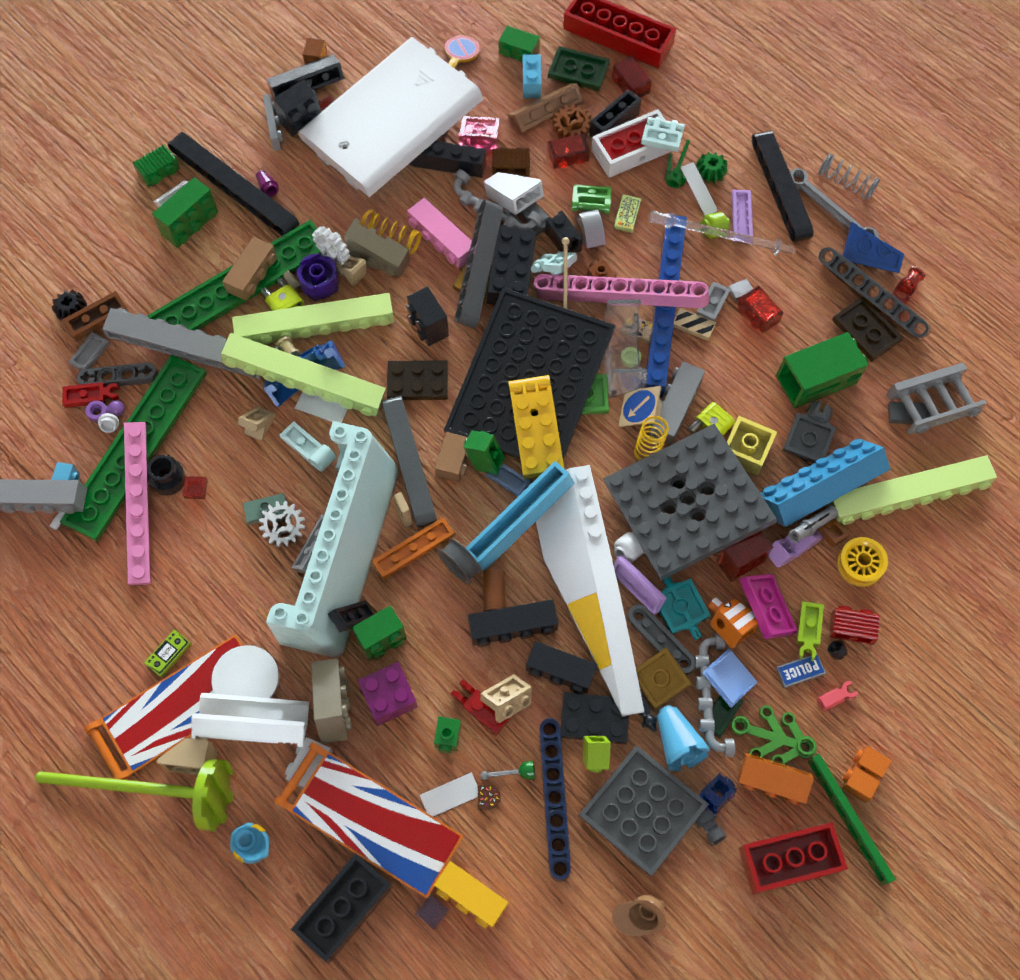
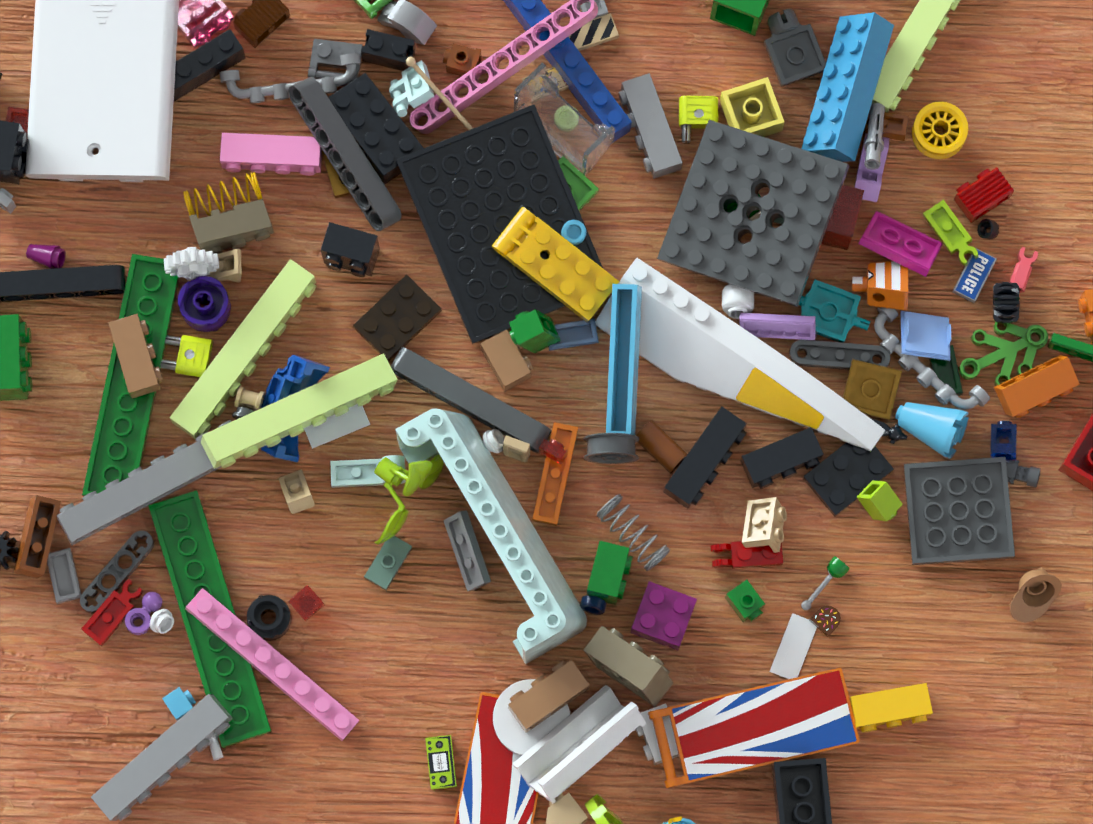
camera: 45 degrees left, 10 degrees up
(265, 672) = (548, 695): none -> medium nougat brick
(276, 531) = (423, 571): white gear -> none
(293, 282) = (179, 330): dark tan tile -> none
(313, 459) = (420, 474): none -> lime plant
(350, 615) = (573, 580): black tile -> none
(353, 646) = (593, 605): none -> dark blue tile
(394, 490) = (493, 440): none -> white plate
(424, 530) = (553, 450): none -> clear red plate
(425, 628) = (659, 554): none -> light grey piece
(432, 911) = (872, 749): plate -> none
(513, 191) = (299, 49): white slope -> none
(552, 810) = (886, 581): dark blue beam -> none
(566, 418) = (574, 232): none -> medium azure tile
(640, 405) = (627, 161): piece -> none
(652, 440) = (678, 188): yellow piece -> none
(804, 704) = (1006, 302): none -> black gear

